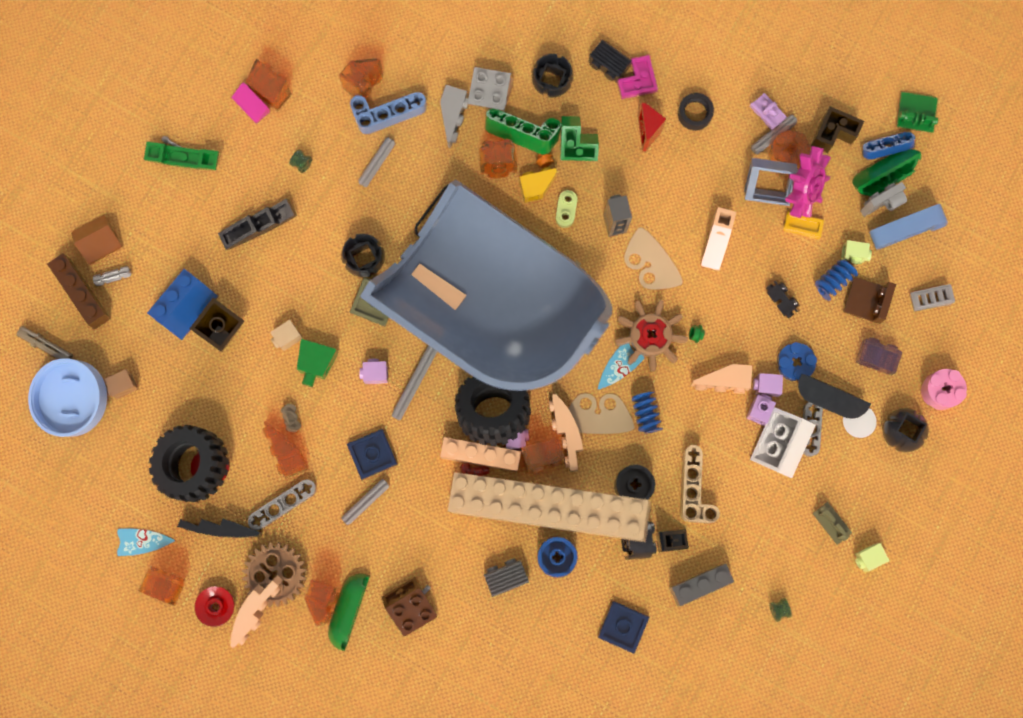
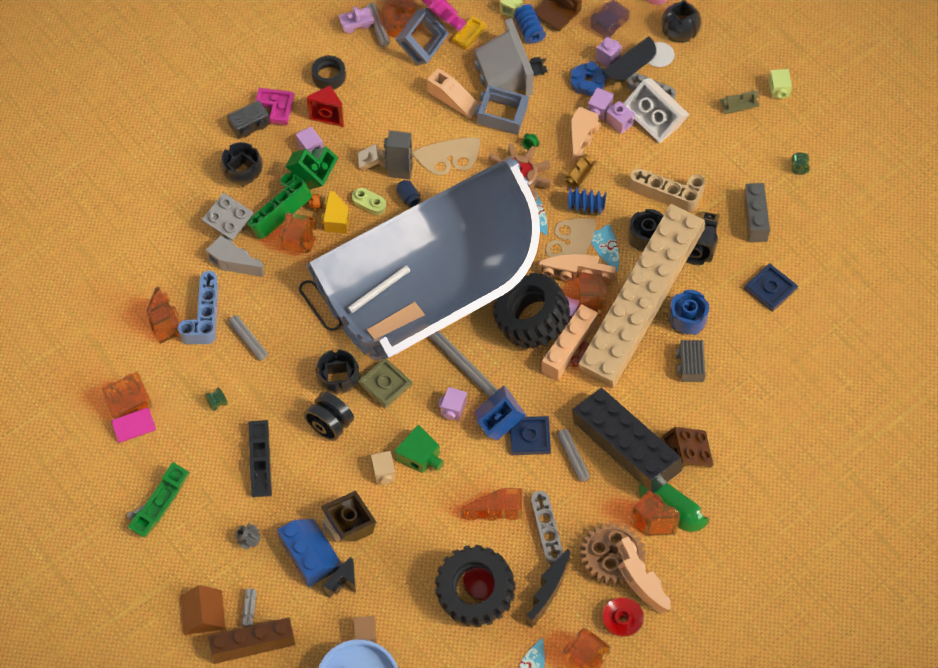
camera: 65 degrees left, 20 degrees down
(168, 345) = (344, 575): none -> black slope
(175, 246) = (248, 536): none -> dark grey gear
(290, 418) = (465, 492): dark tan piece -> none
(313, 266) = (328, 416): none -> black wheel
(376, 417) = (499, 413): none -> blue slope
(389, 547) = (627, 440): none -> black brick
(466, 257) = (378, 289): none -> white bar
(587, 241) = (408, 193): none -> dark blue brick
(607, 127) = (308, 140): none -> lavender brick
(607, 450) = (606, 246): none -> medium azure sticker
(613, 187) = (371, 156): none -> tan bracket
(669, 394) = (577, 178): none -> pearl gold hinge
(727, 270) = (505, 97): none -> sand blue window
(774, 272) = (504, 62): none -> light grey windscreen
(835, 370) = (608, 51): none -> lavender brick

